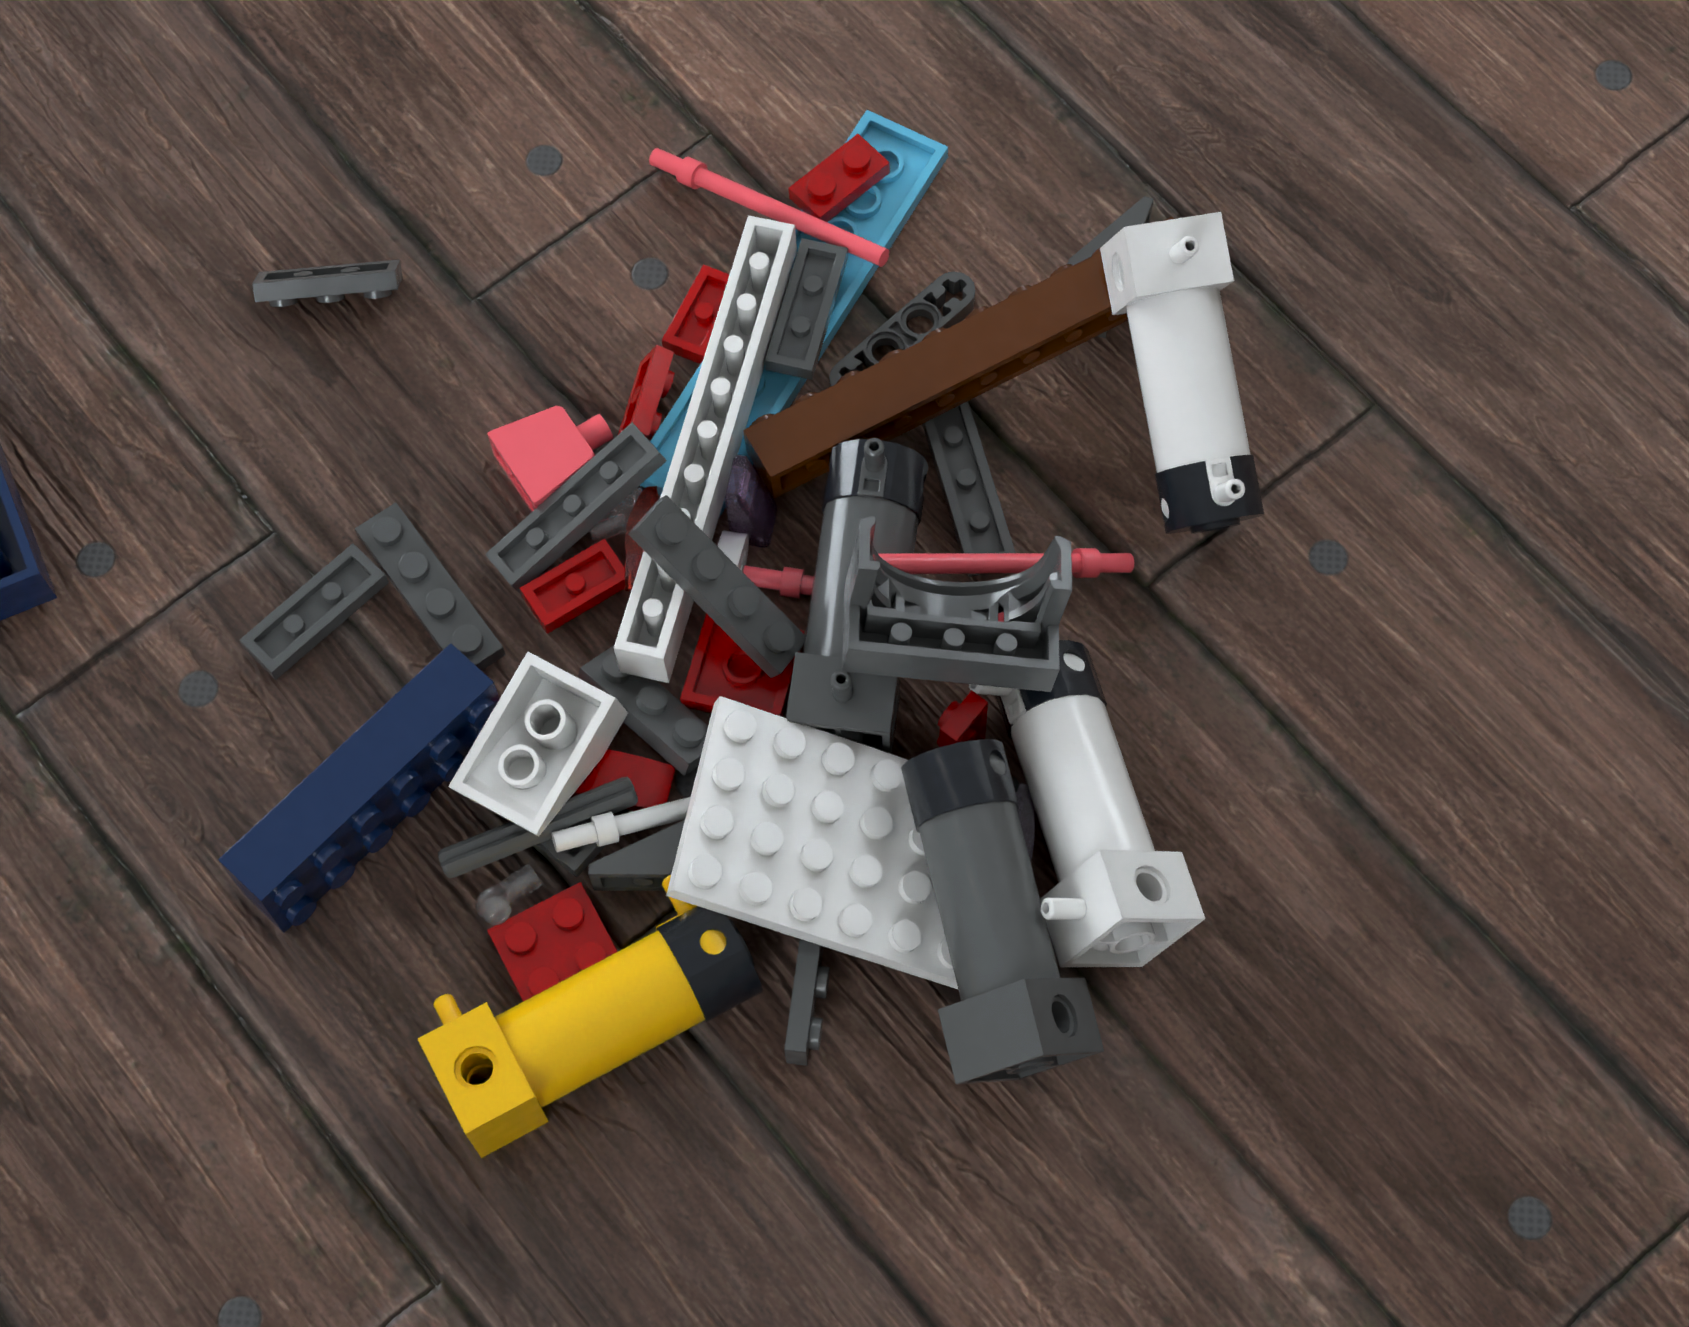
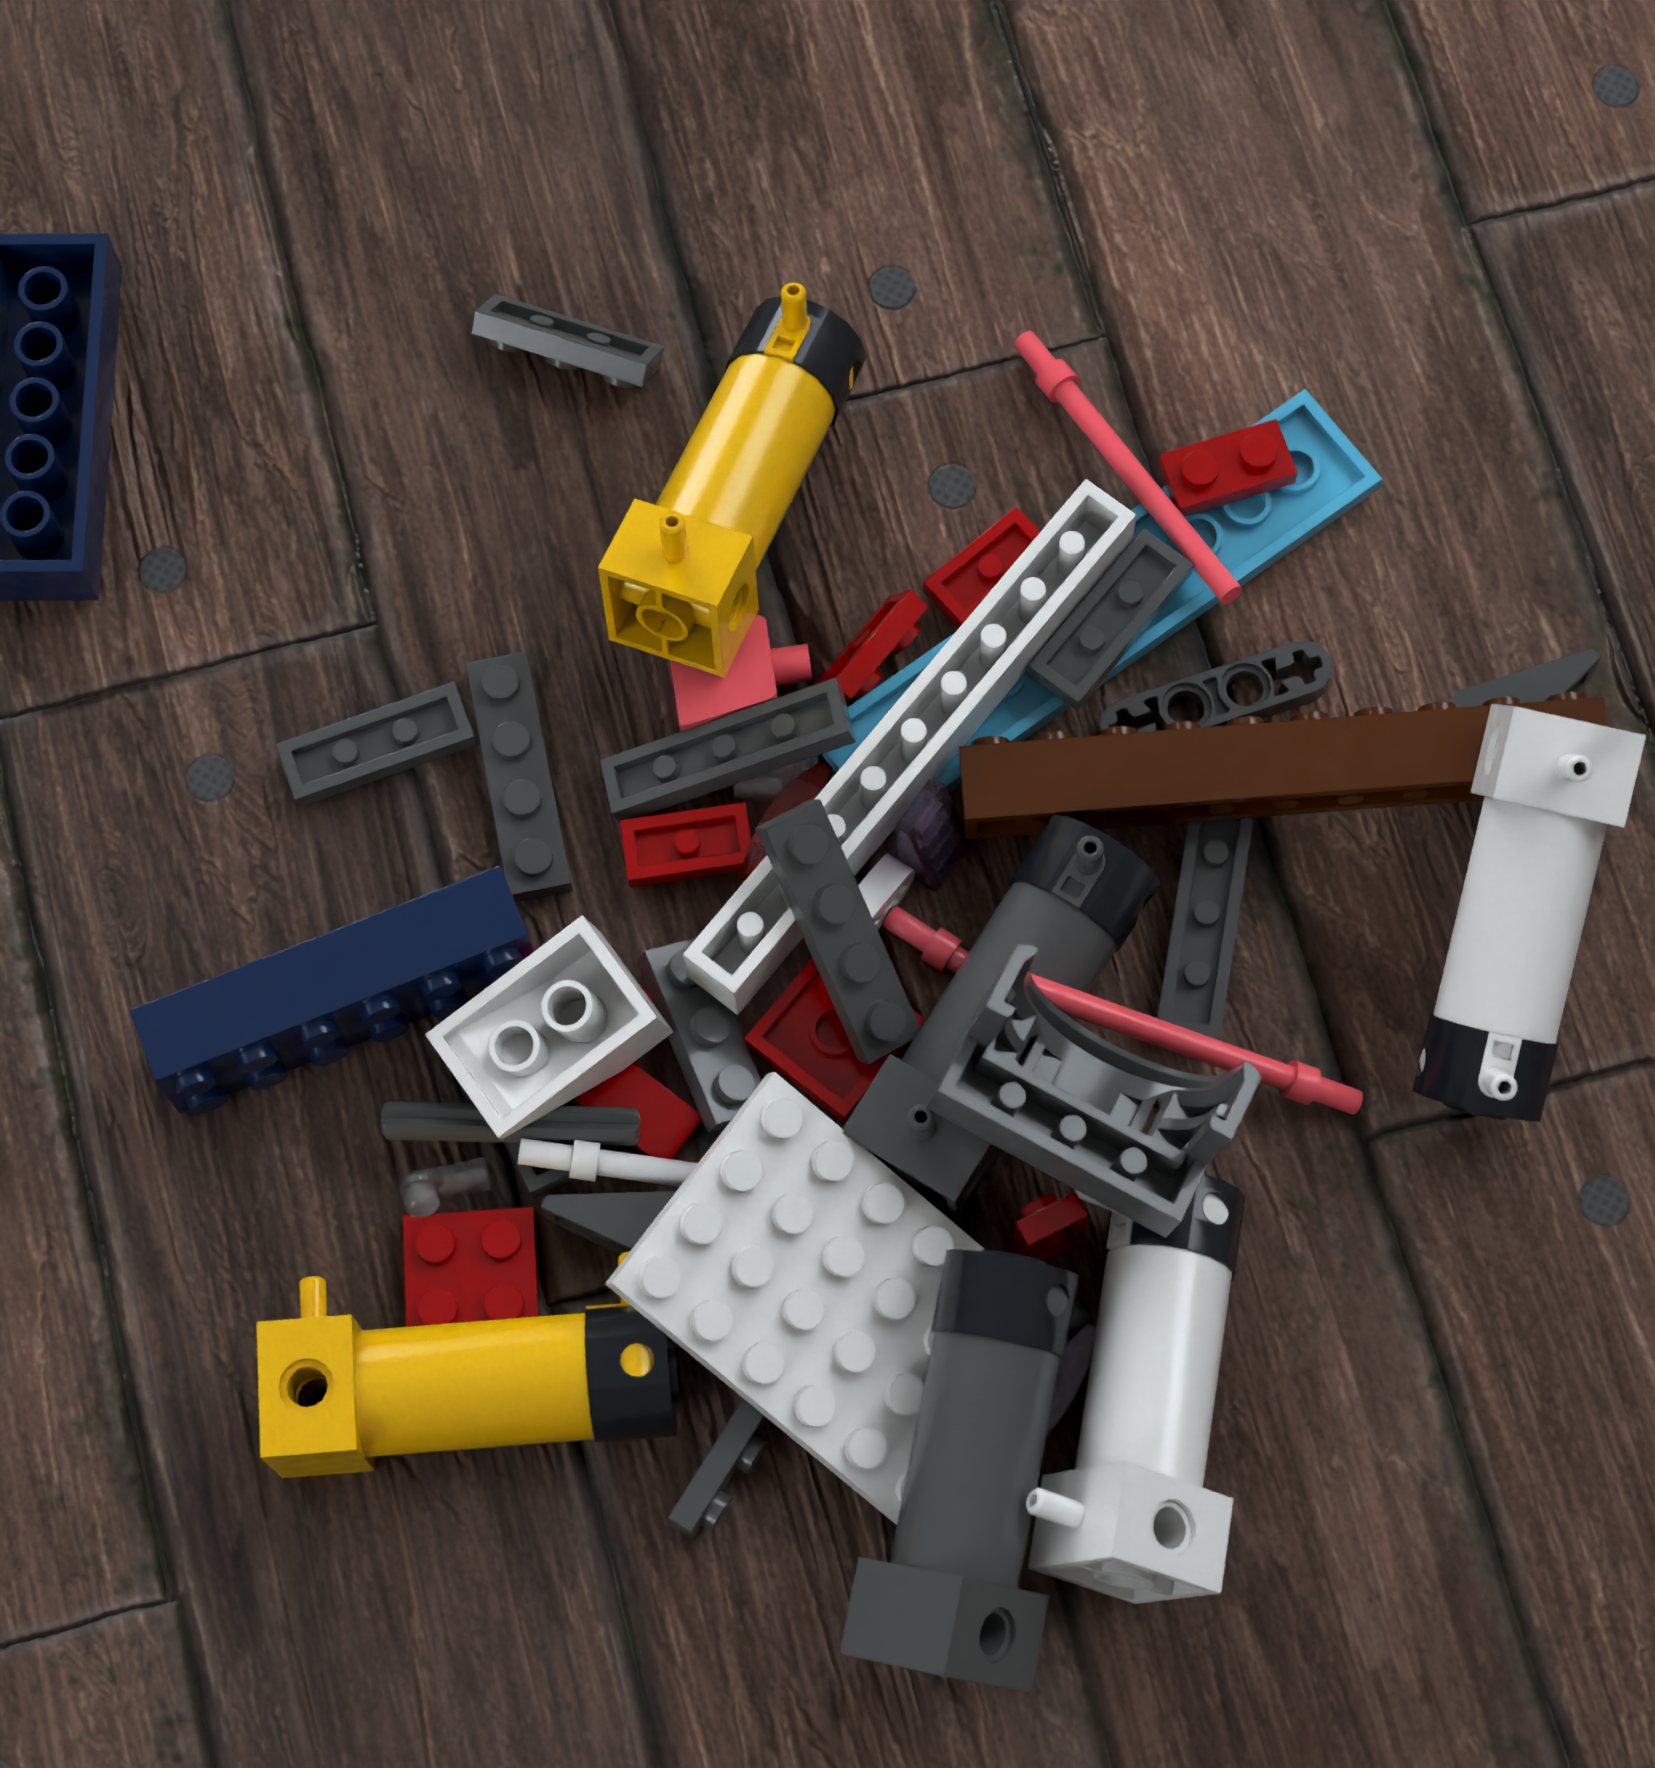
camera: 25 degrees right, 5 degrees up
(492, 378) = (687, 567): none -> yellow piece

